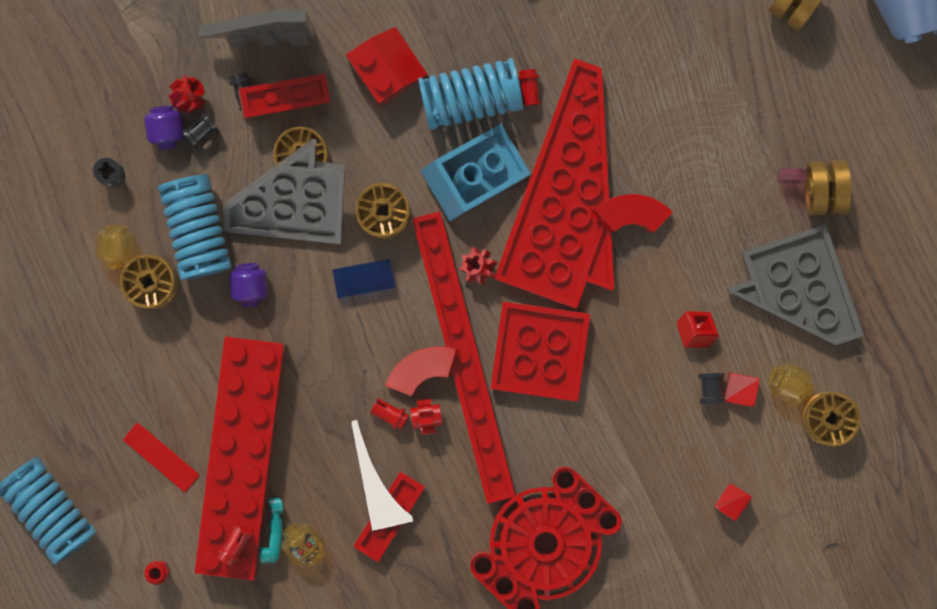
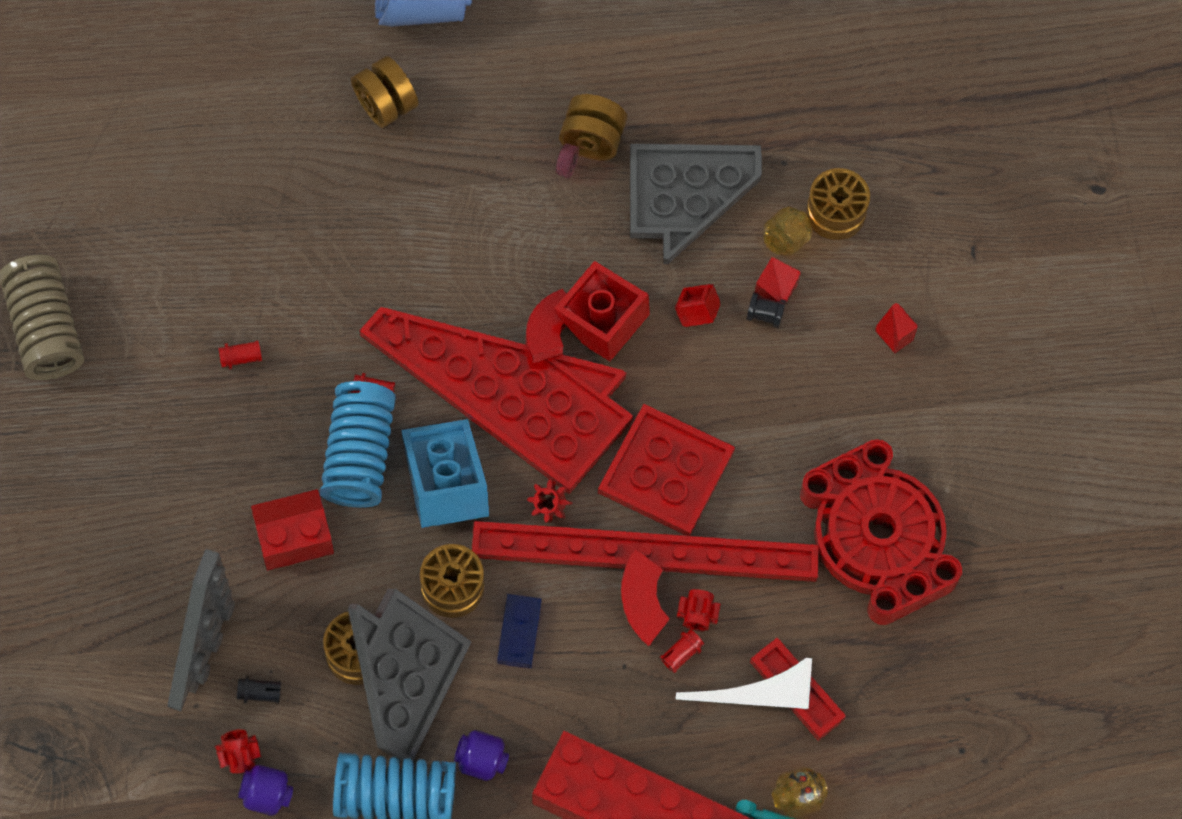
camera: 80 degrees left, 20 degrees down
(200, 131) = (286, 751): black bush -> none
(284, 96) = (282, 644): red plate -> none
(660, 252) = (603, 310): none -> red slope

